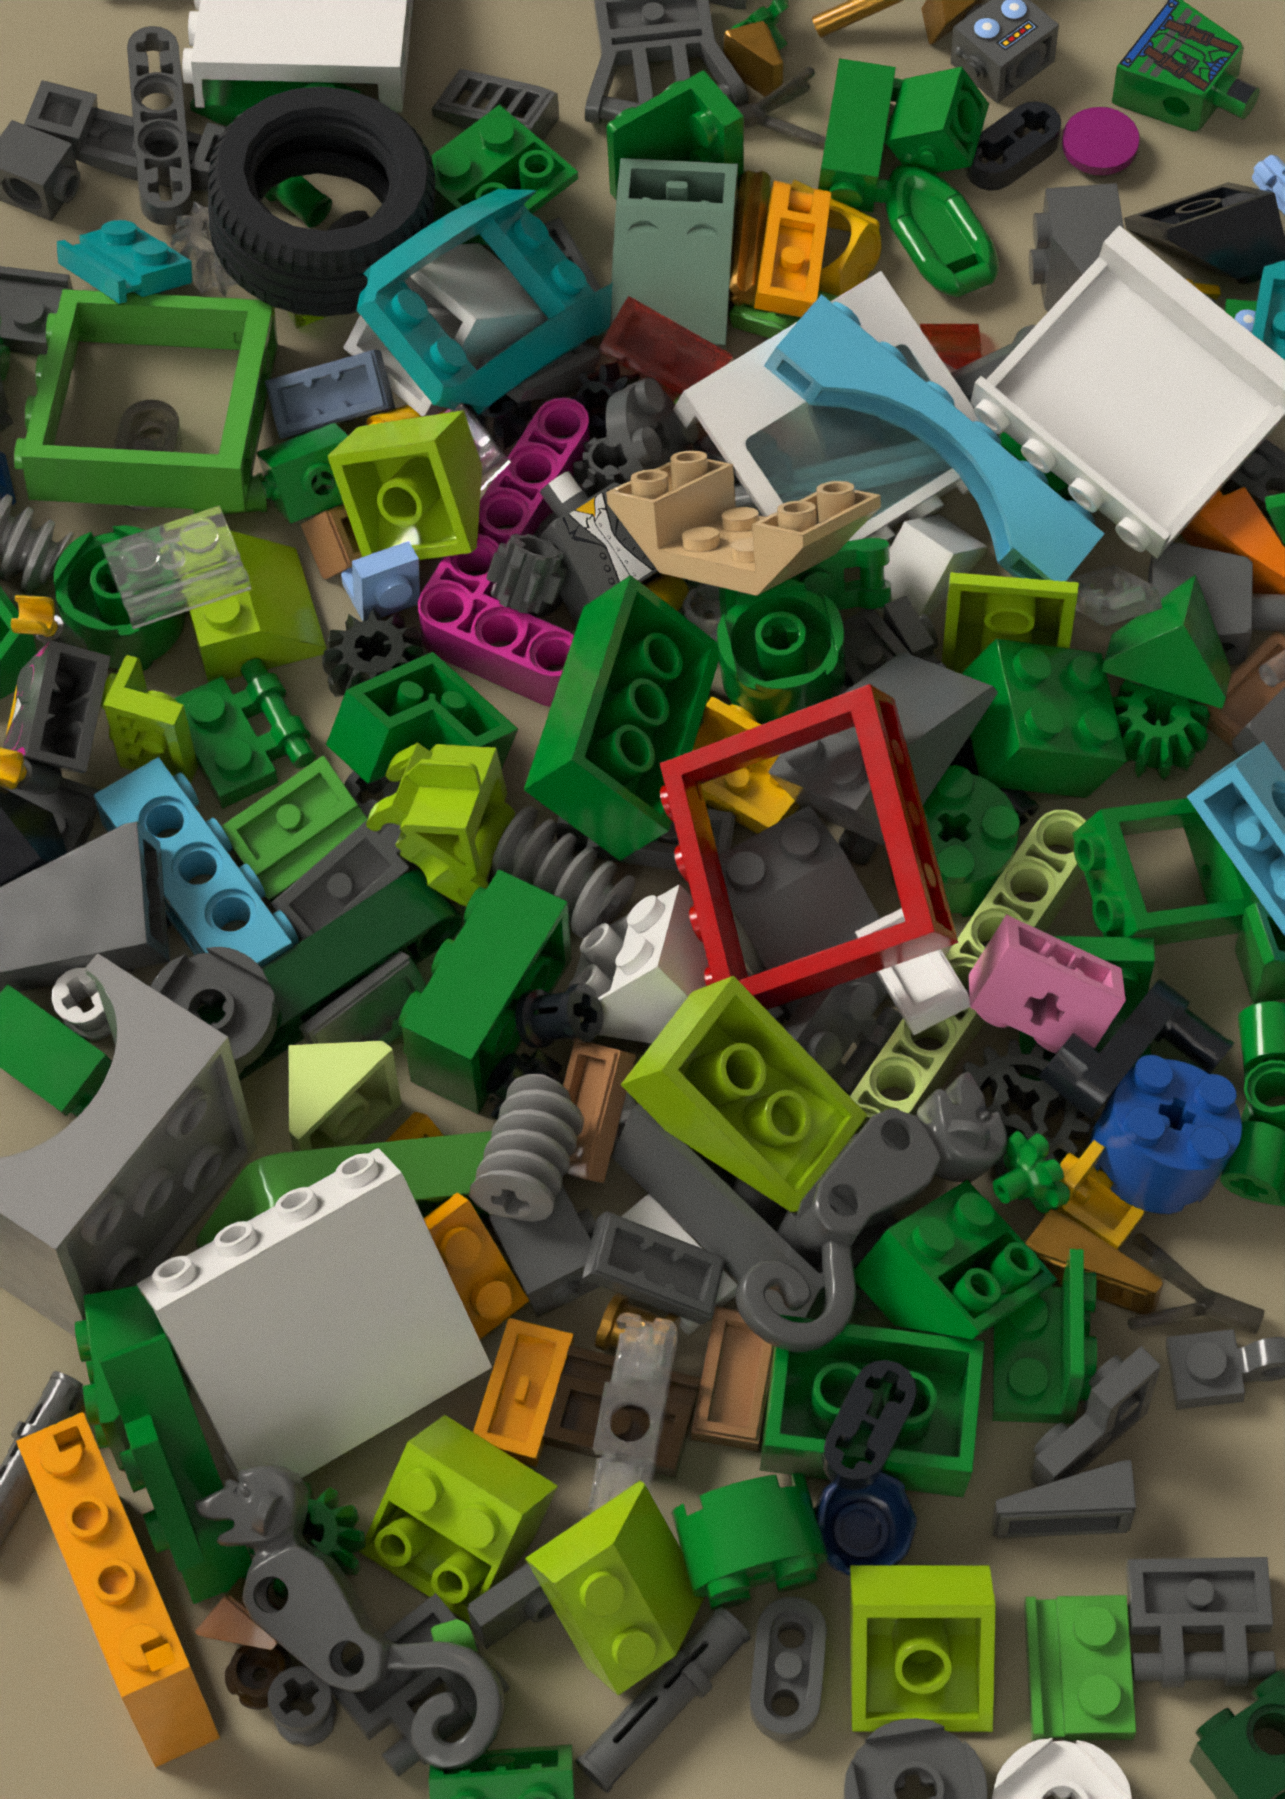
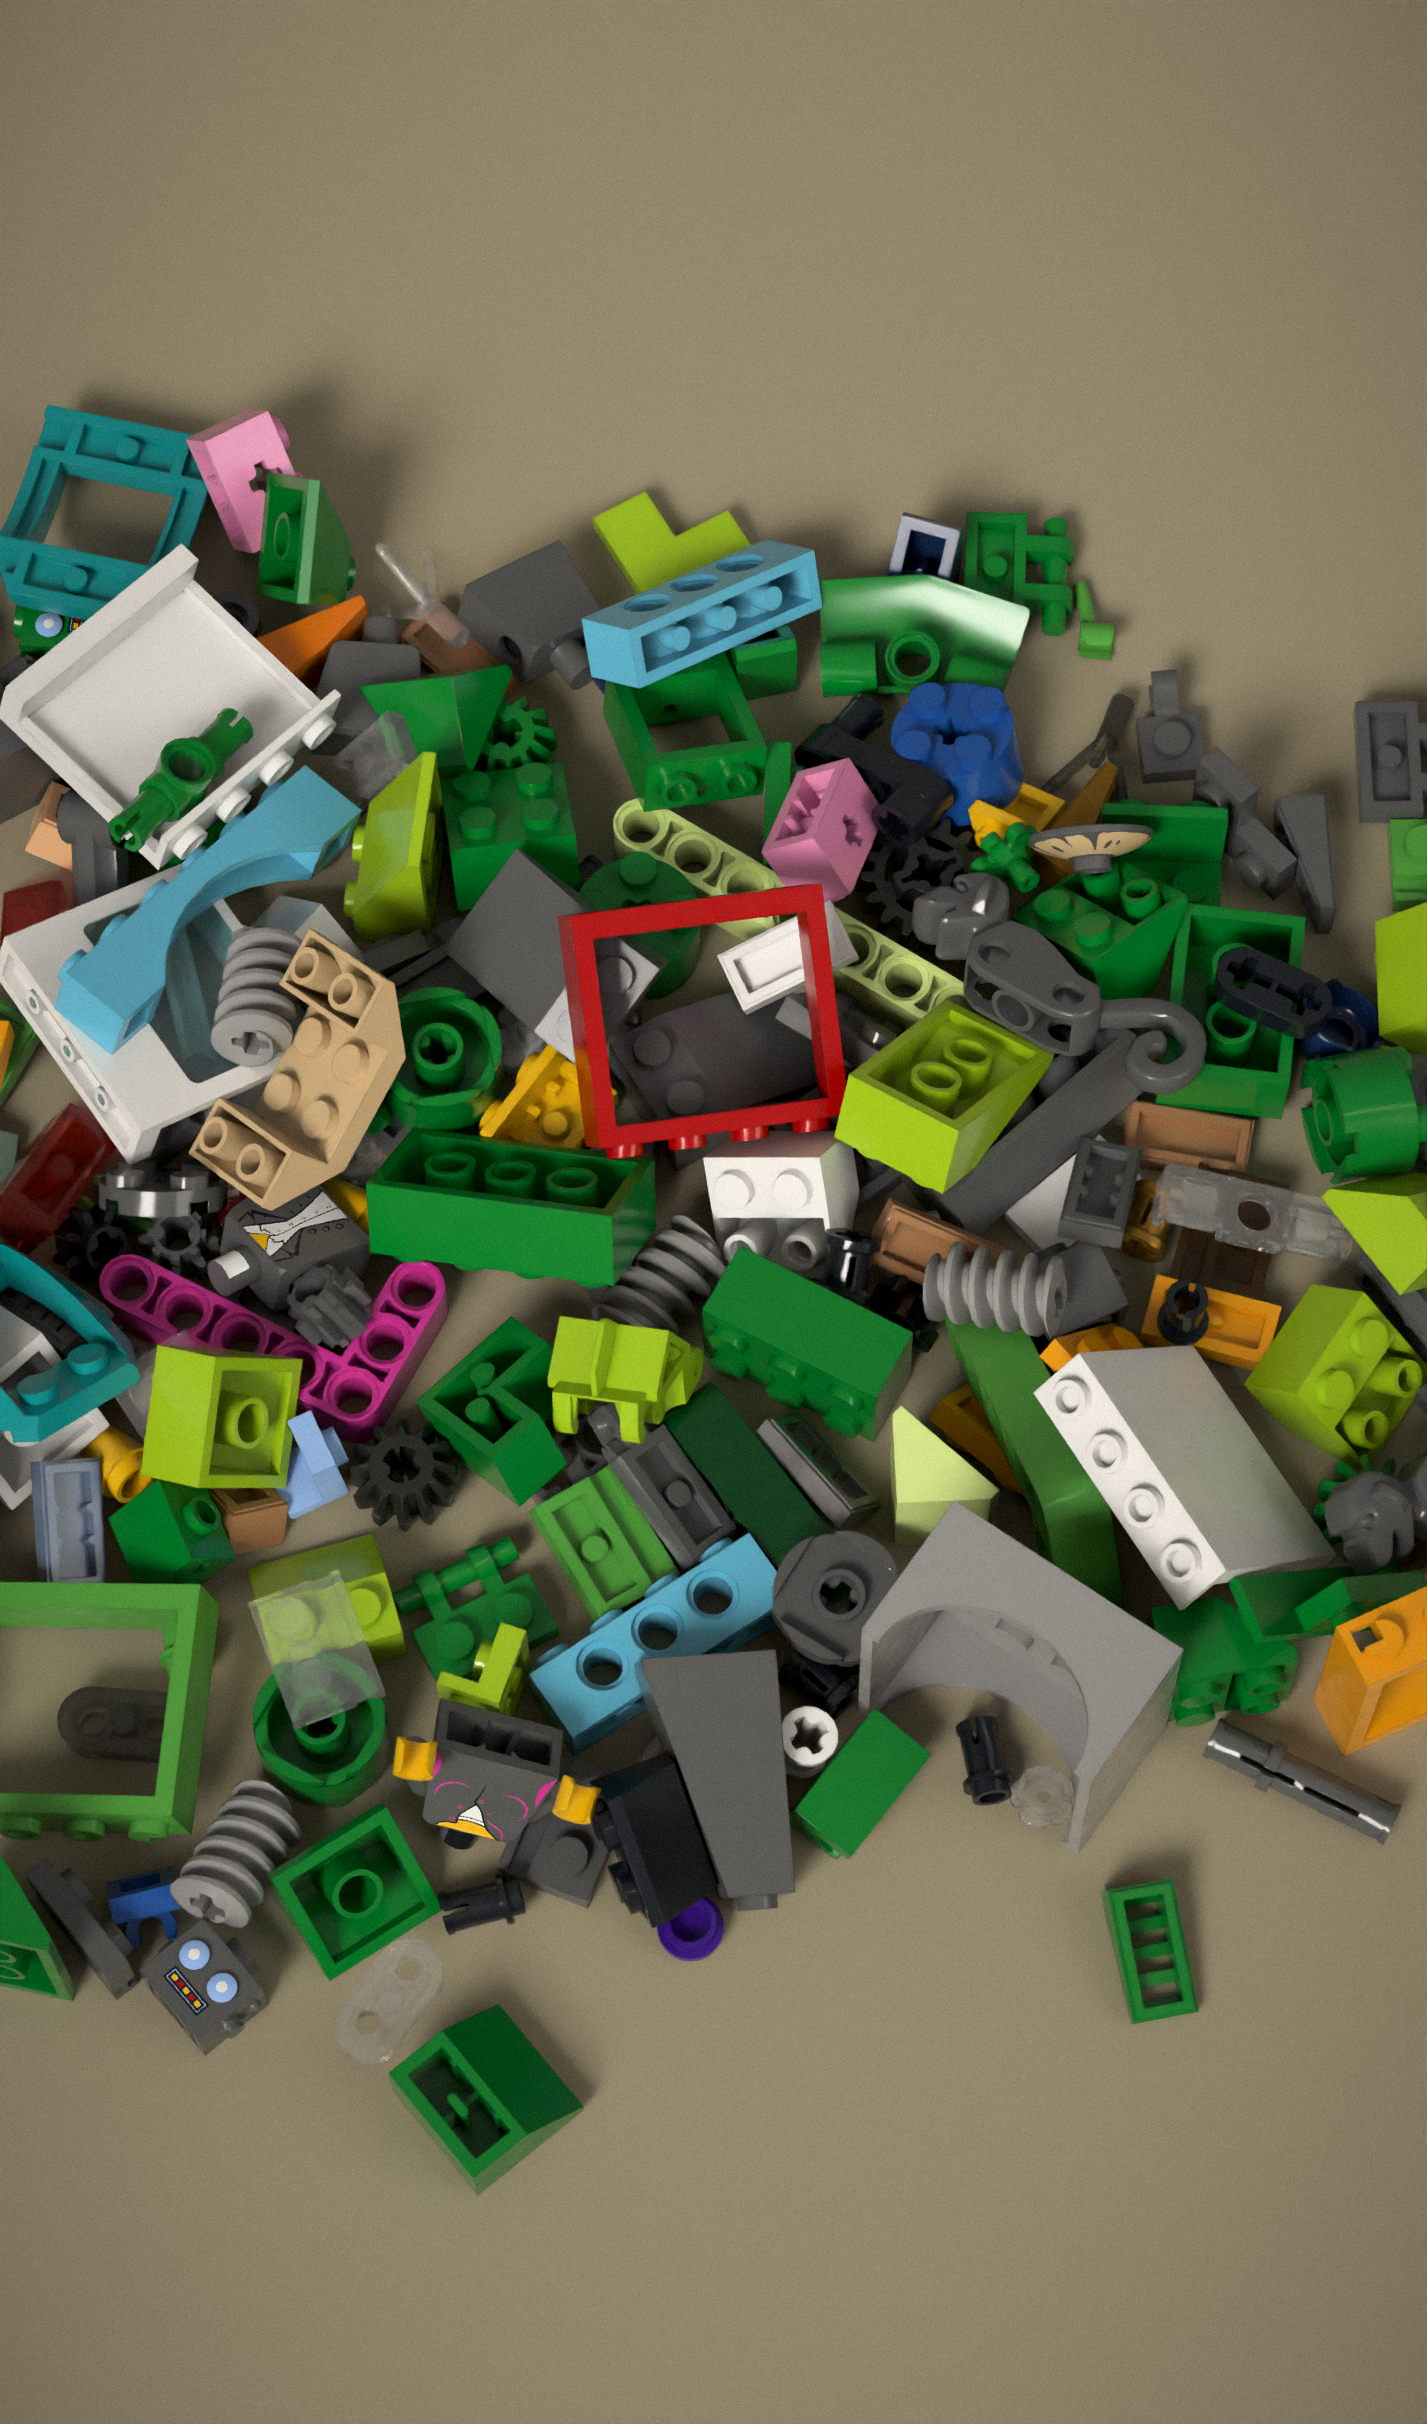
camera: 90 degrees left, 5 degrees up
(512, 1344) = (1192, 1306): none -> black pin
(800, 477) = (252, 1007): none -> light grey piece
(1036, 1238) = (1091, 845): none -> dish
(1076, 412) = (180, 779): none -> green pin

